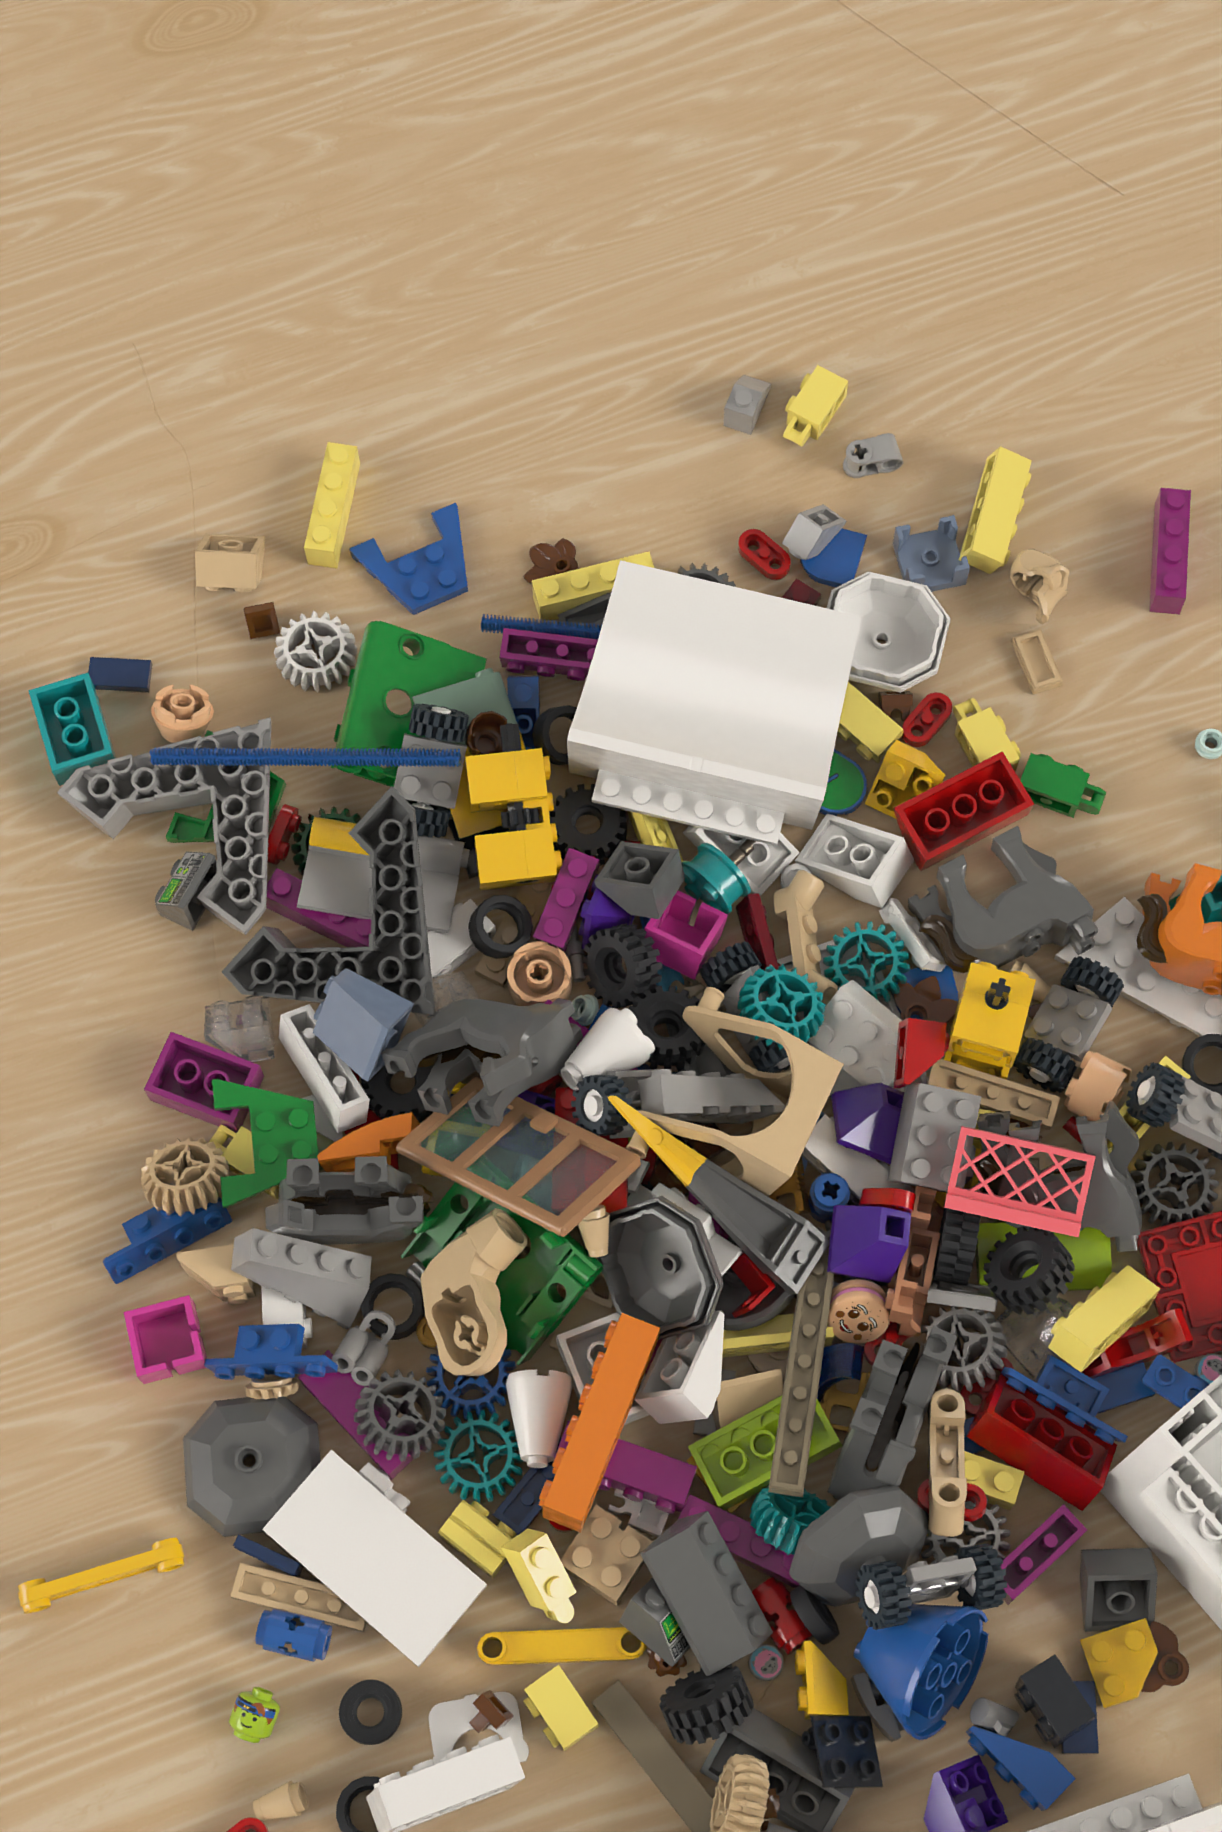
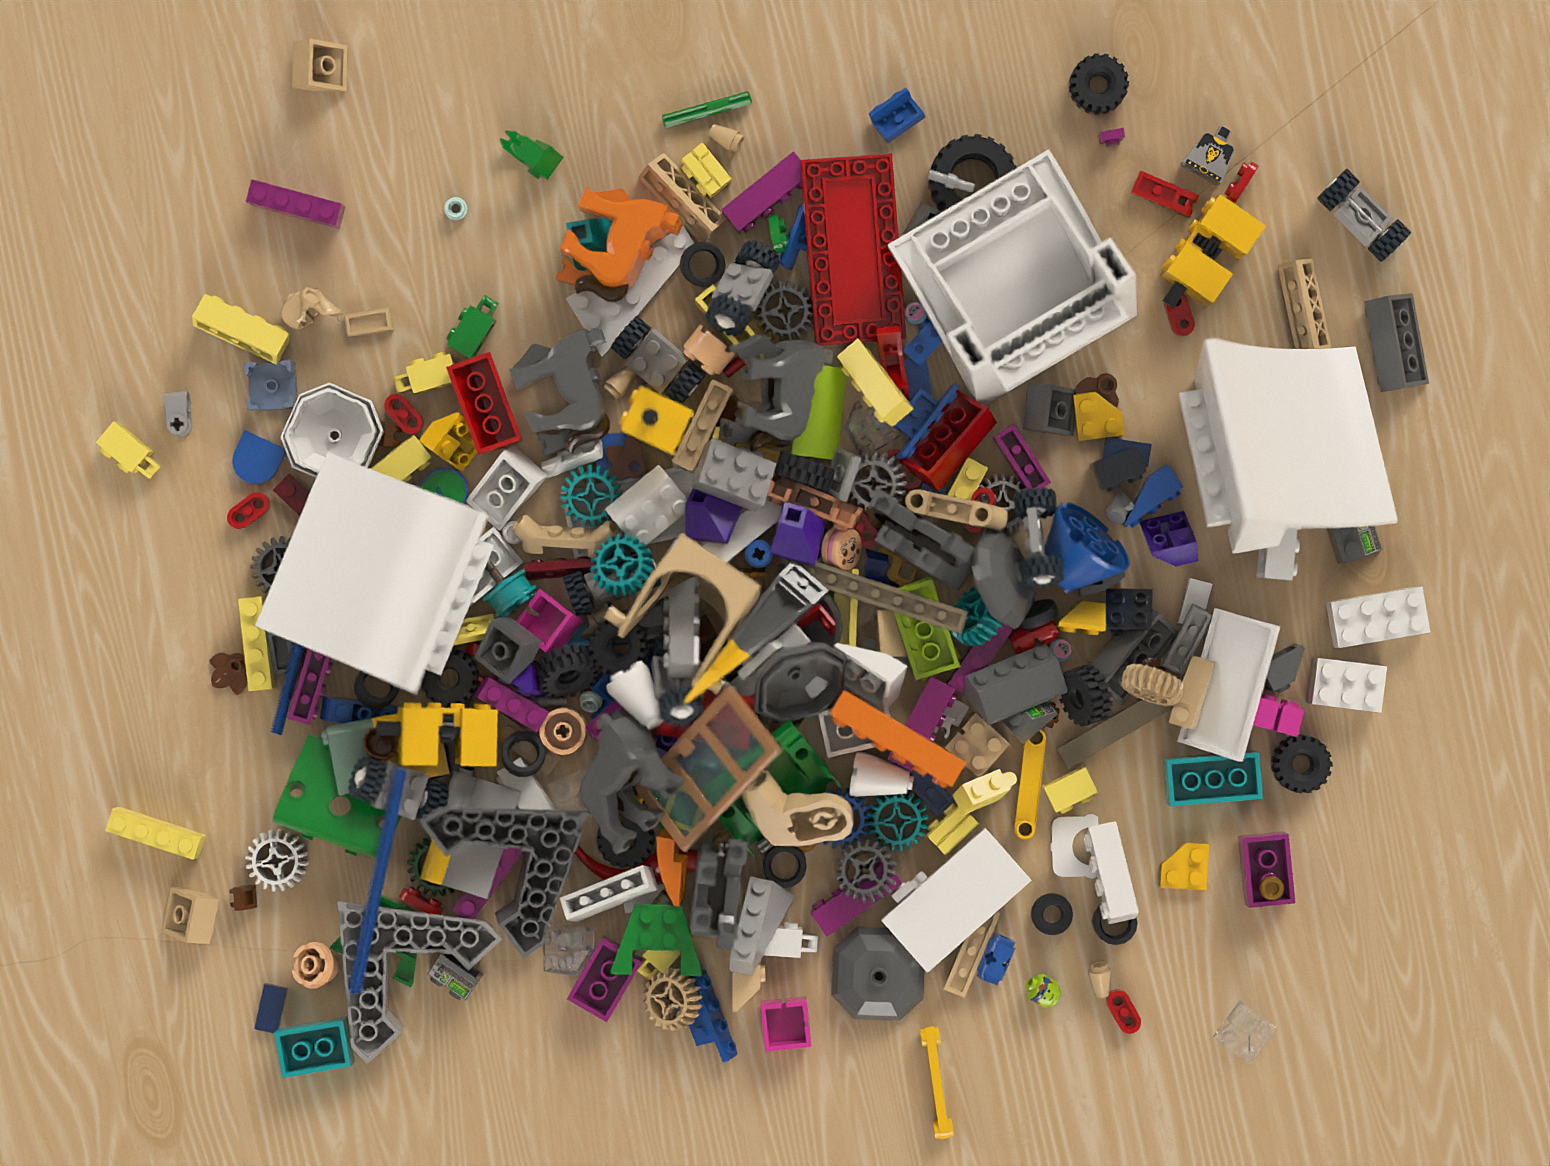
camera: 85 degrees left, 20 degrees up
(268, 1556) = (941, 971): dark blue tile -> none
(270, 1351) = (805, 954): blue bracket -> none
(271, 1387) = (829, 954): tan gear -> none
(360, 1021) = (586, 864): sand blue slope -> none
(362, 1351) = (814, 889): light grey piece -> none
(425, 575) = (223, 767): blue wing -> none
(490, 1712) = (1066, 836): reddish brown tile -> none
(596, 1232) = (771, 722): tan cone -> none
(745, 404) = (114, 501): light grey slope -> none
(812, 531) = (238, 471): light grey slope -> none
(888, 1198) = (772, 515): red beam -> none
(918, 1048) = (672, 475): red slope -> none
(1011, 1209) = (798, 428): coral fence -> none
(1018, 1255) = (829, 440): black tyre -> none

